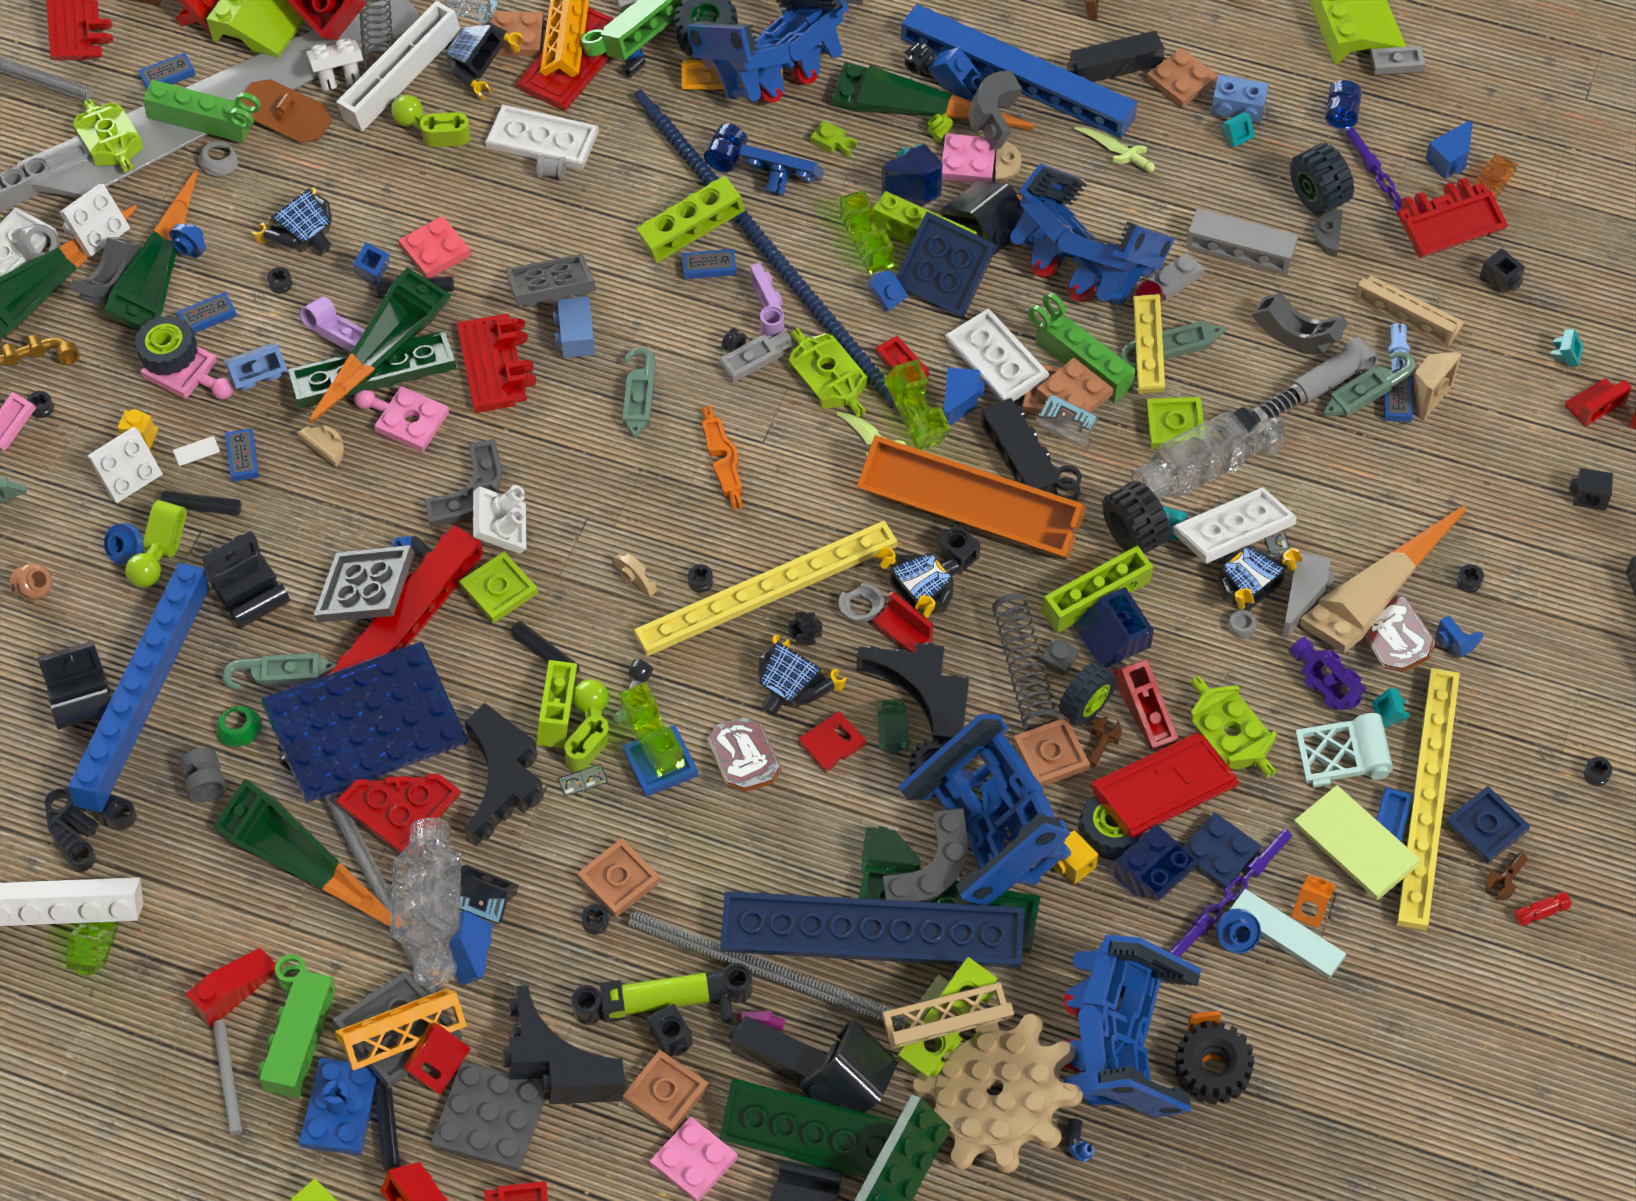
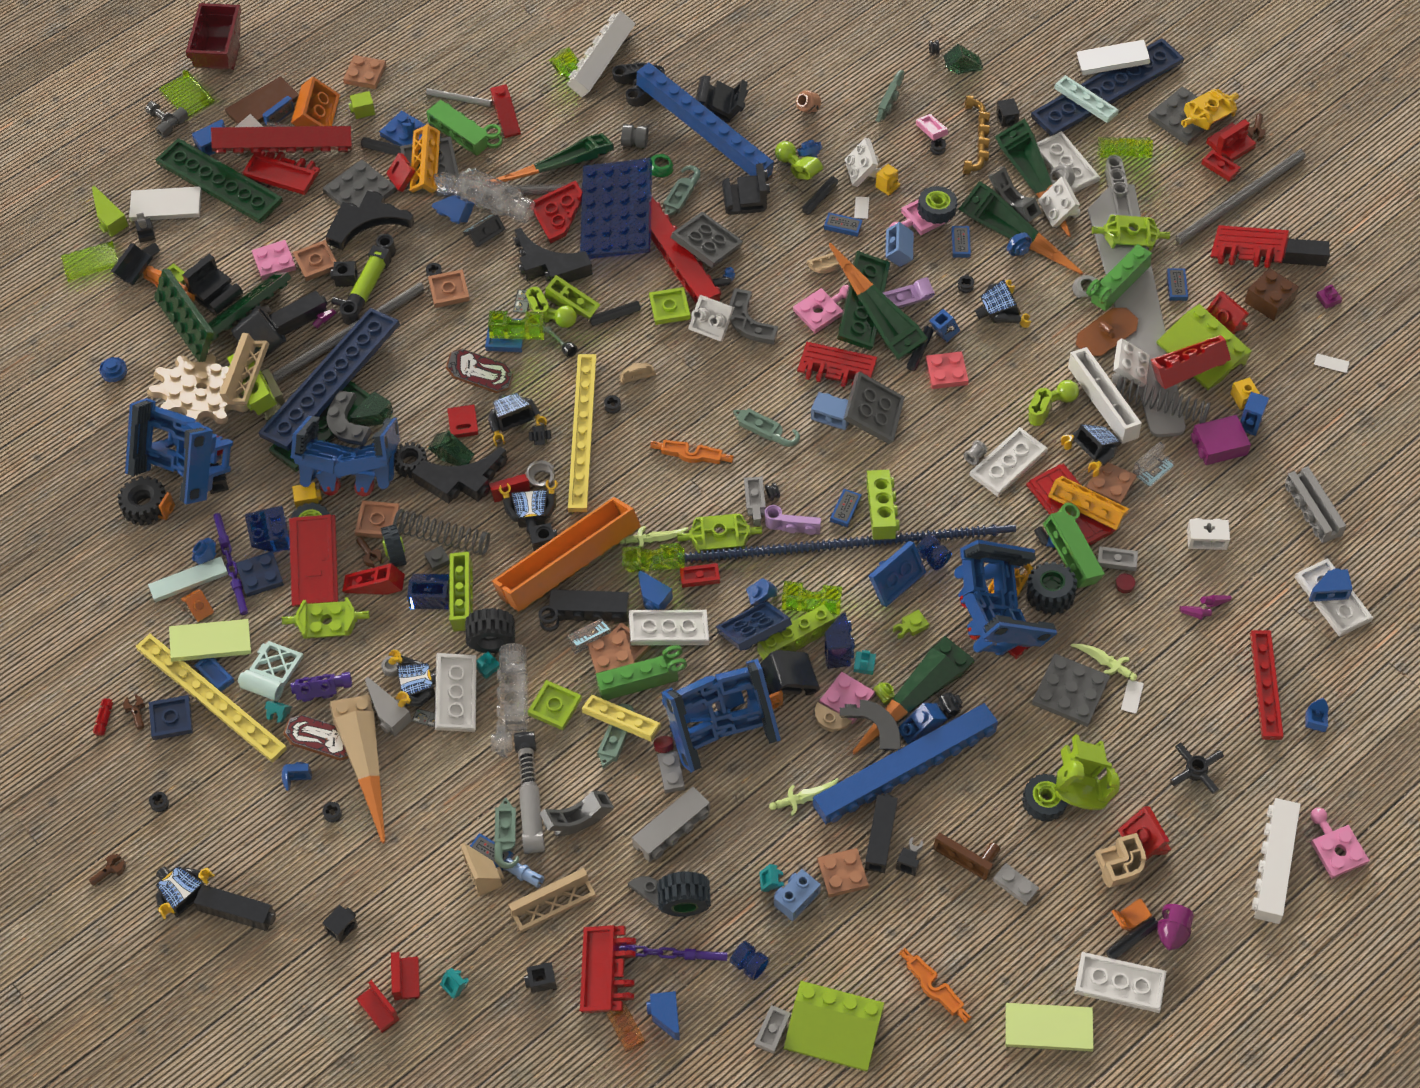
camera: 120 degrees right, 0 degrees up
(1129, 24) = (907, 860): none -> black piece

